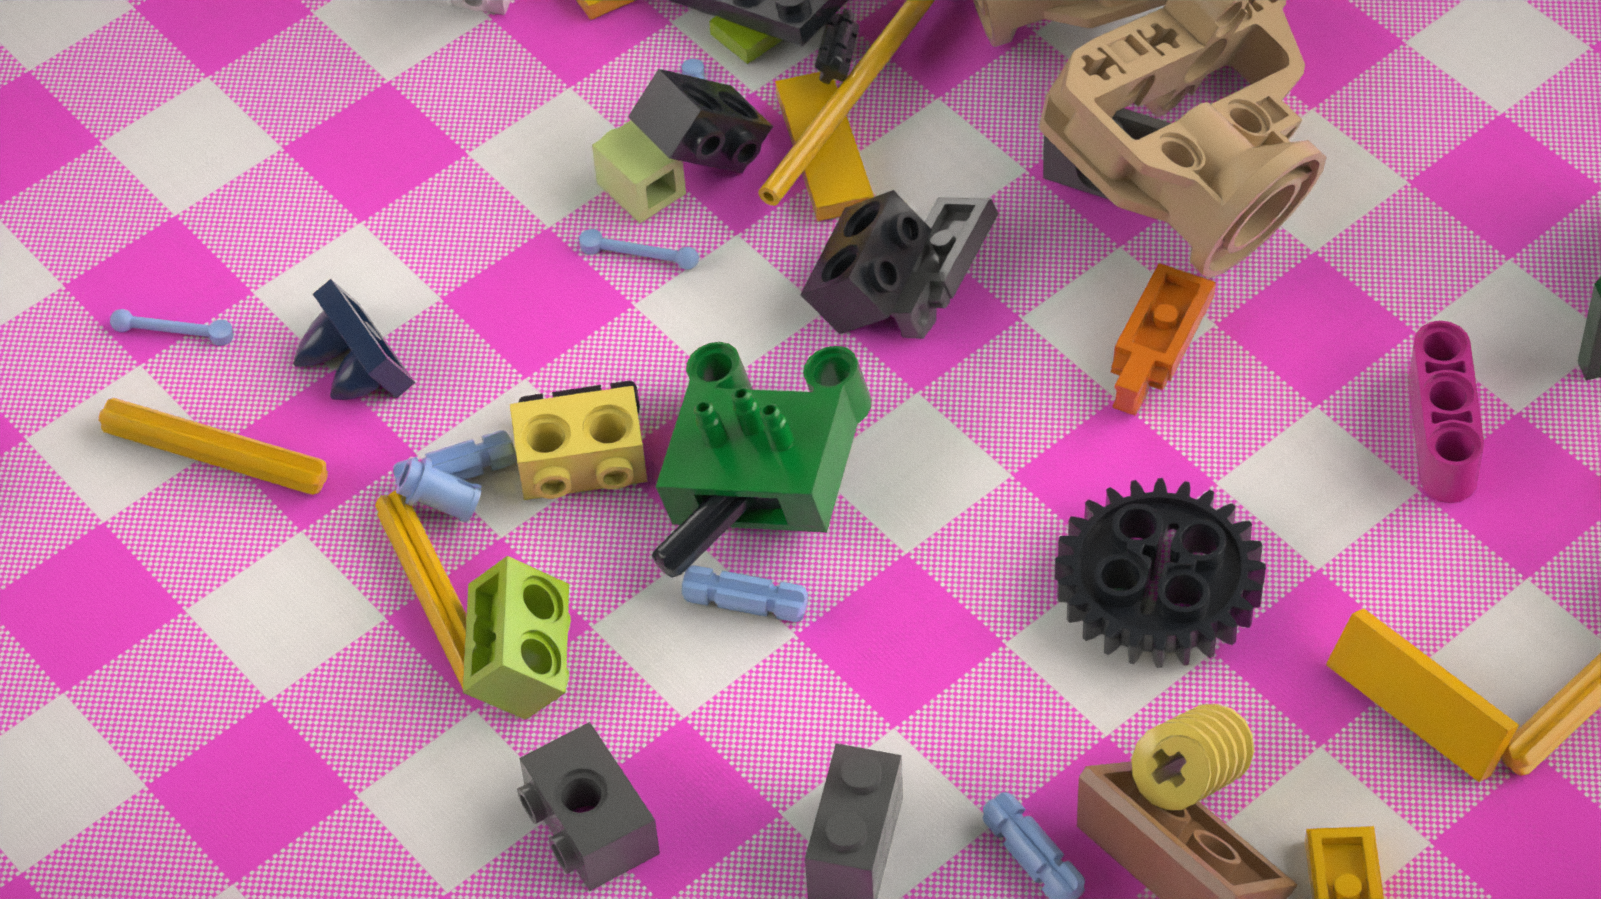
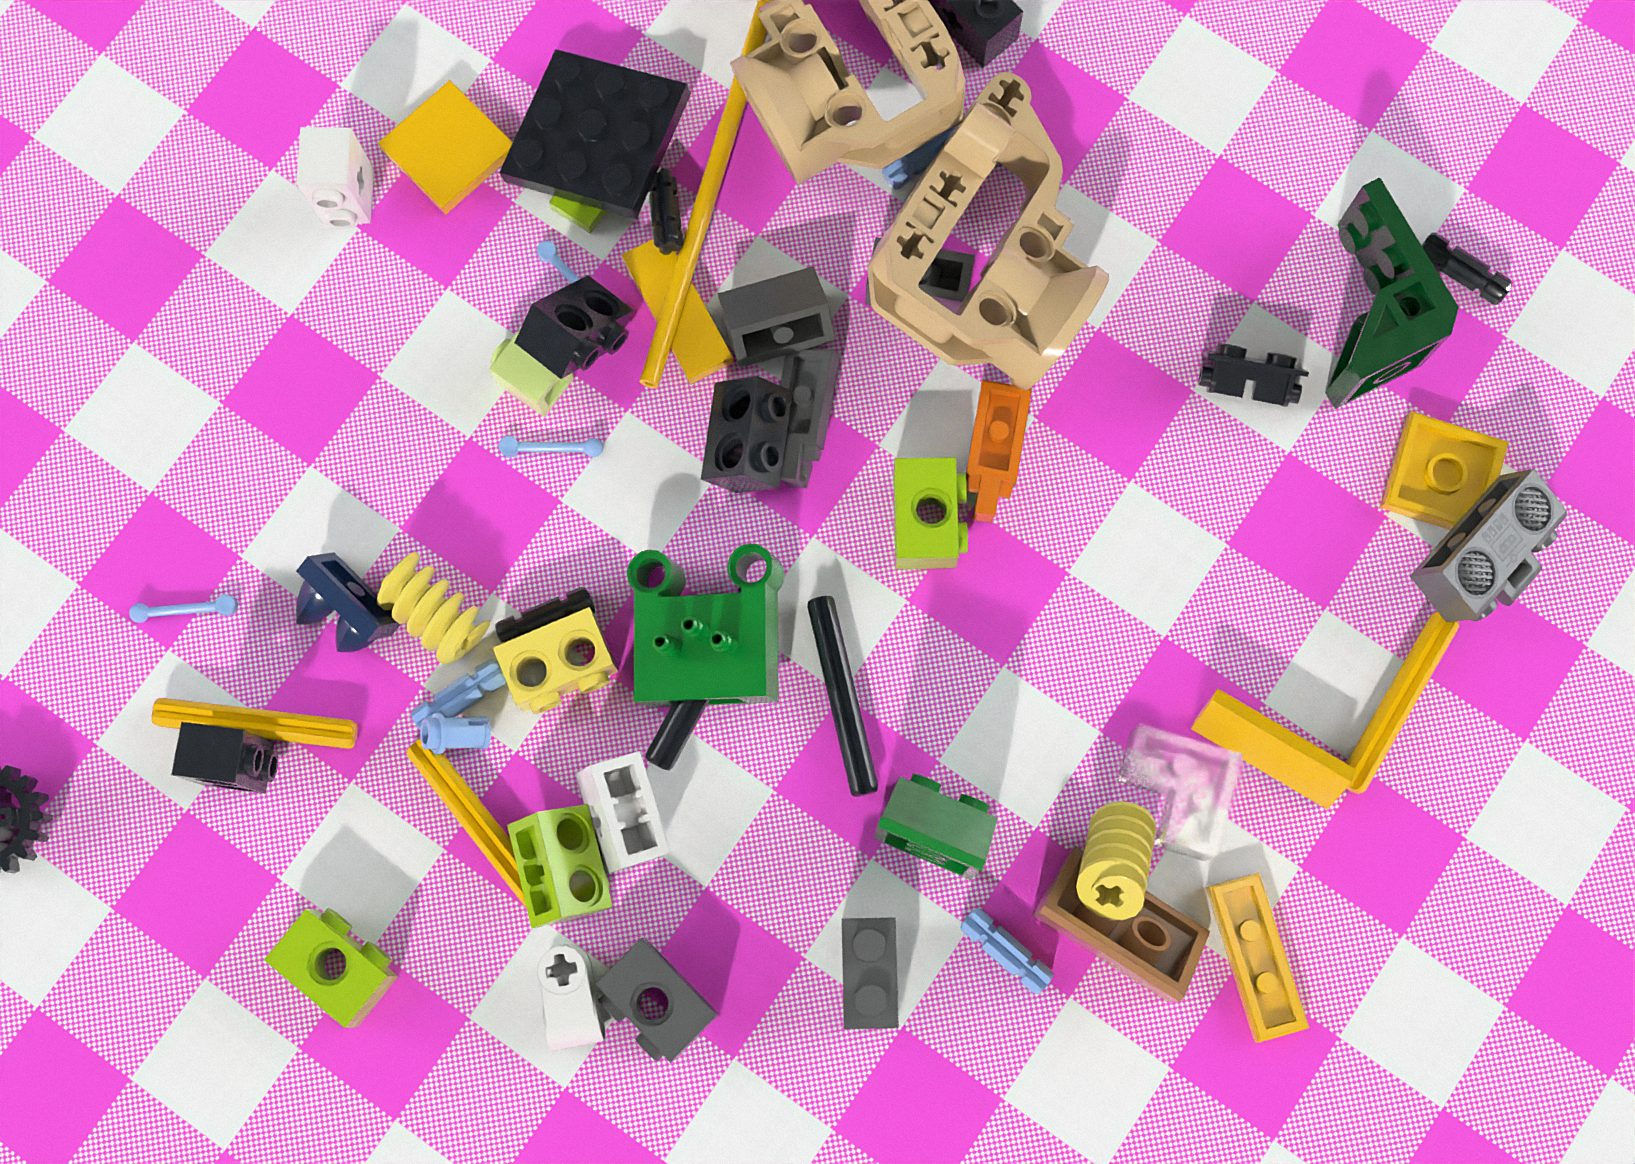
camera: 15 degrees left, 25 degrees up
(169, 452) = (224, 758): none -> black brick
(224, 726) = (302, 959): none -> lime brick
(452, 366) = (429, 612): none -> light yellow piece
(483, 785) = (570, 1010): none -> white piece
(608, 598) = (623, 812): none -> white brick
(744, 593) = (726, 768): light blue axle -> none
(905, 550) = (842, 696): none -> black axle
(935, 158) = (776, 316): none -> dark grey brick
(971, 685) = (937, 827): none -> green slope
(1057, 381) = (928, 482): none -> lime brick
(1102, 556) = (1094, 683): black gear -> none
(1302, 694) = (1194, 779): none -> clear brick
(1445, 411) = (1243, 452): dark pink beam -> none
(1510, 320) = (1272, 377): none -> black hinge

